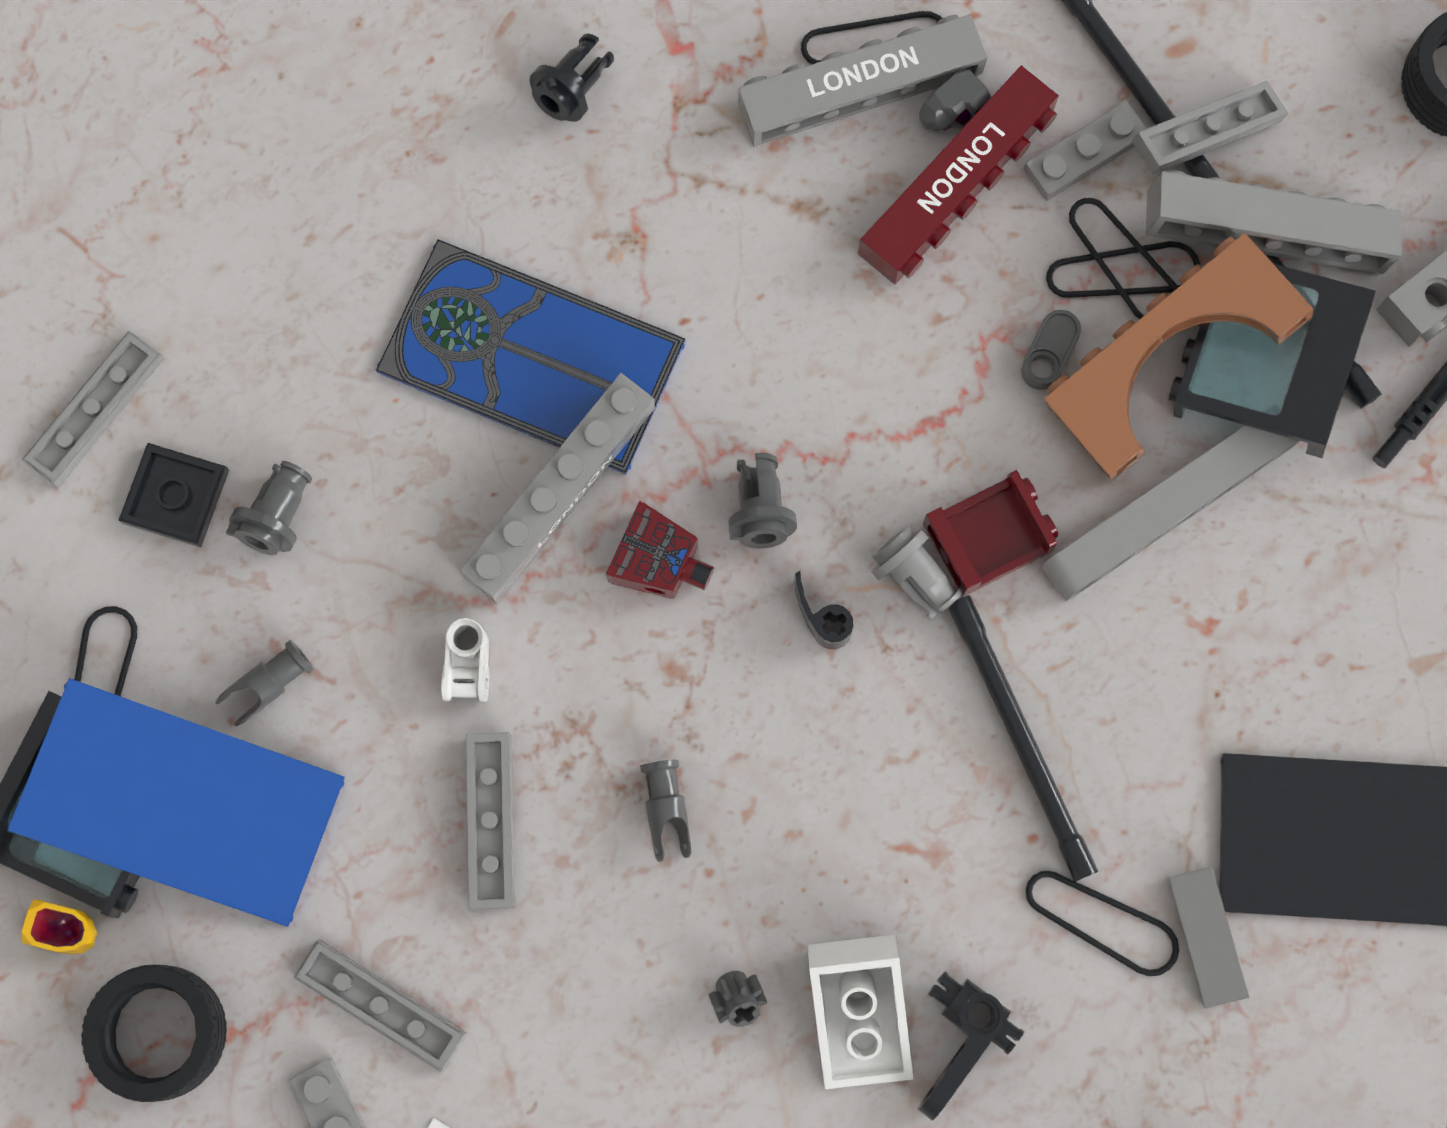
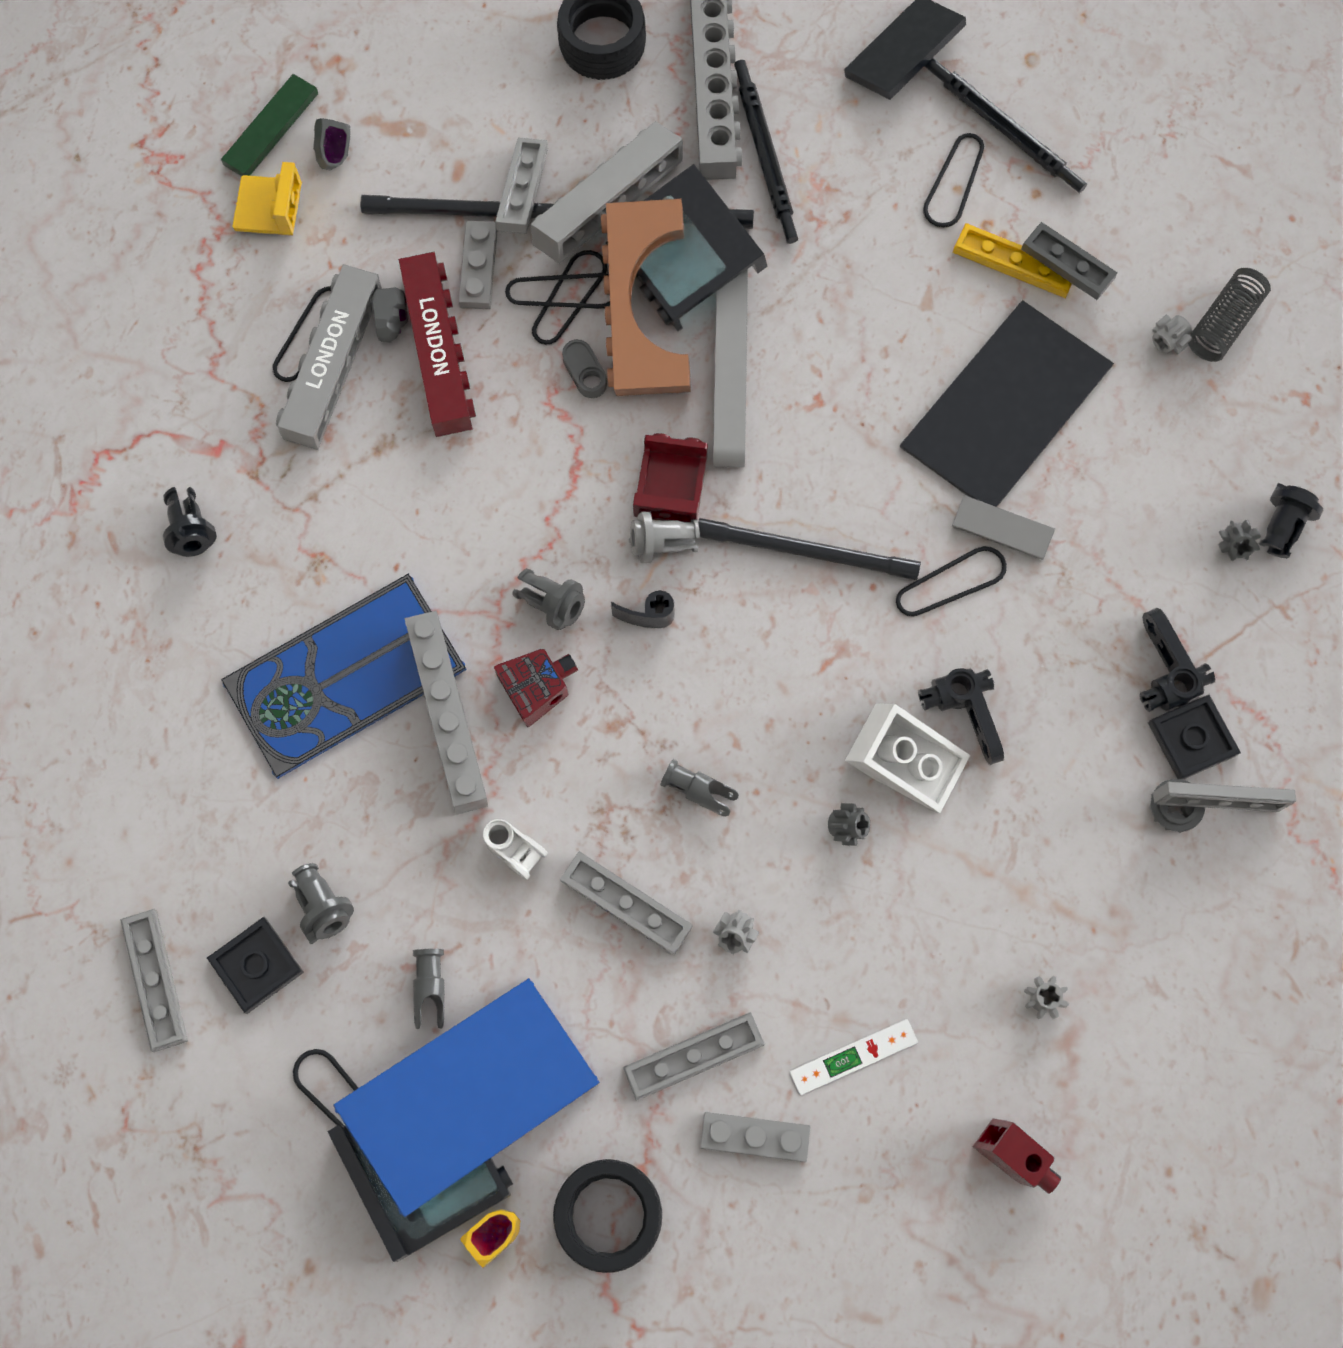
camera: 55 degrees left, 5 degrees down
(536, 959) = (736, 932): none -> light grey gear

